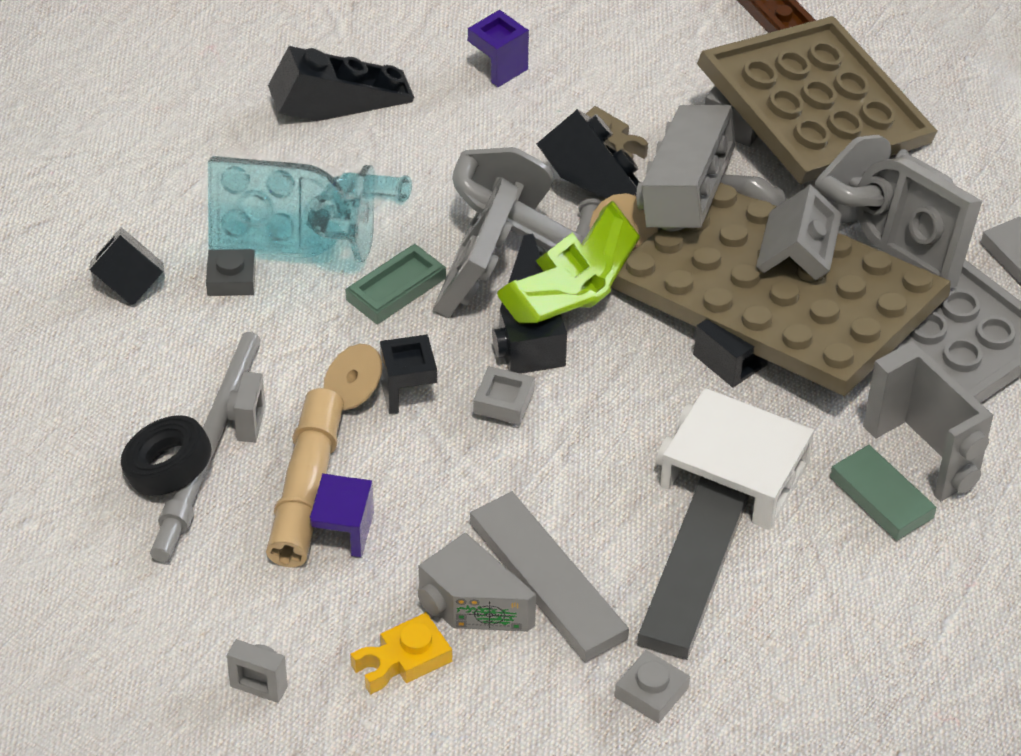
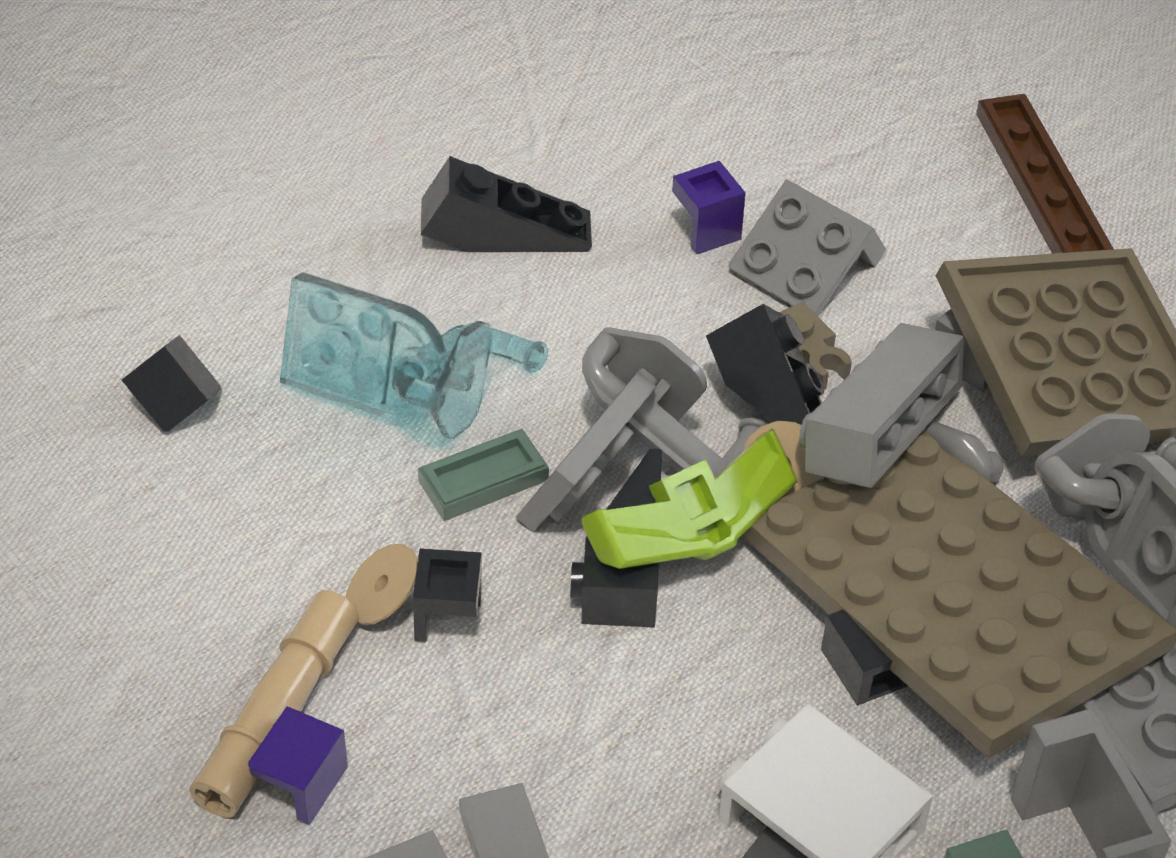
camera: 15 degrees right, 0 degrees up
(177, 470) = (128, 655): black tyre -> none
(178, 511) = (107, 711): light grey bar -> none
(230, 272) = (293, 417): dark grey plate -> none
(247, 406) = (241, 594): light grey plate -> none
(503, 395) = (558, 650): light grey plate -> none
(583, 64) = (804, 248): none -> light grey bracket
(802, 229) = (998, 525): light grey panel -> none

